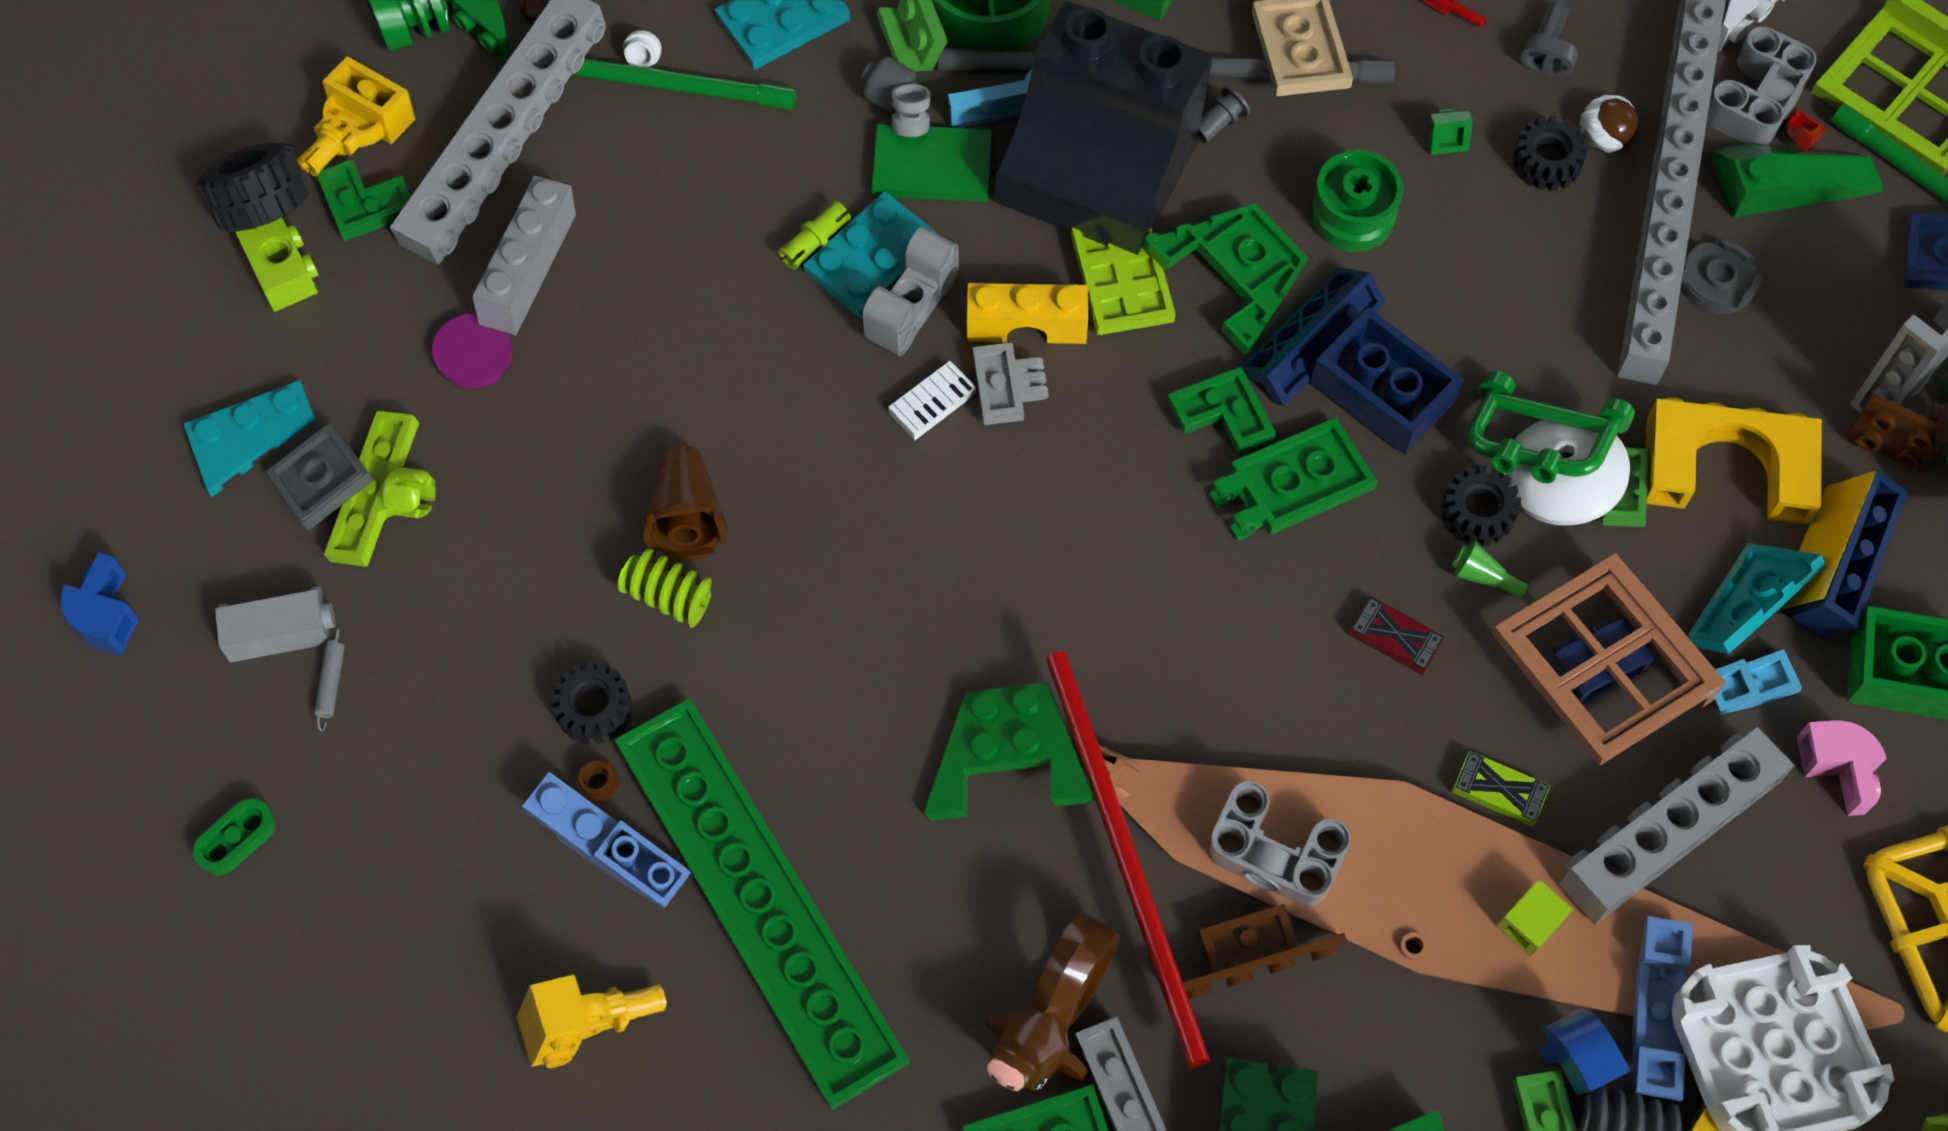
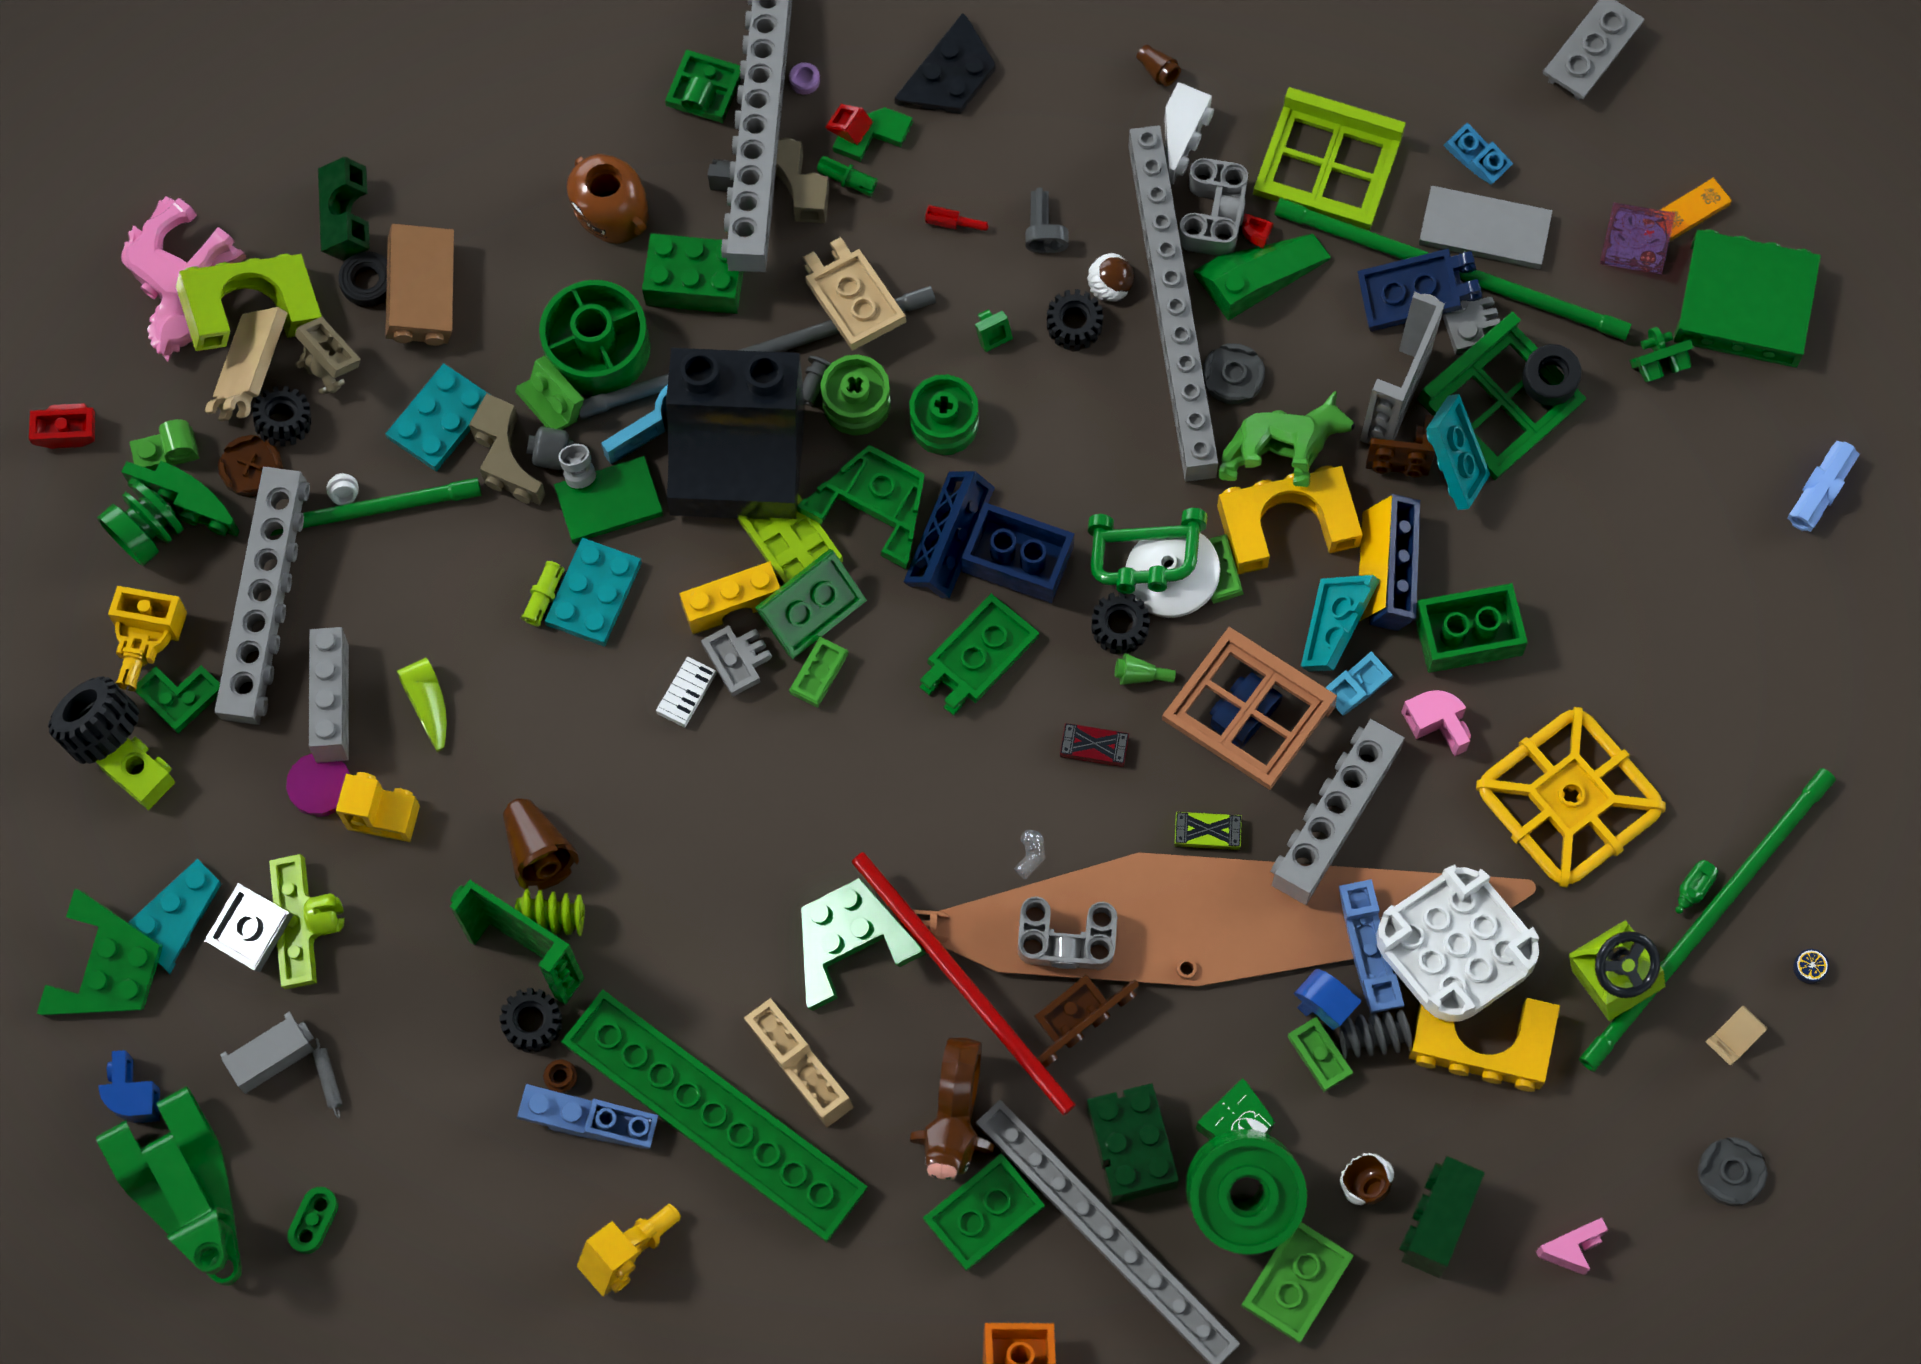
camera: 20 degrees left, 5 degrees up
(104, 736) = (180, 1183): none -> green piece
(152, 467) = (117, 969): none -> green wing
(517, 398) = (375, 811): none -> yellow brick
(582, 554) = (479, 908): none -> green panel
(633, 301) = (426, 698): none -> lime piece
(836, 44) = (494, 427): none -> dark tan arch
(888, 877) = (799, 1062): none -> tan slope
(928, 276) = (644, 594): light grey beam -> none
(1096, 432) = (818, 672): none -> bright green plate
(1117, 351) = (811, 603): none -> green tile
(1227, 400) = (902, 610): green plate -> none
(1261, 144) = (855, 394): none -> bright green wheel
(1275, 733) = (1034, 851): none -> clear arm
(1534, 918) = (1262, 917): lime panel -> none
(1762, 361) = (1286, 435): none -> bright green animal

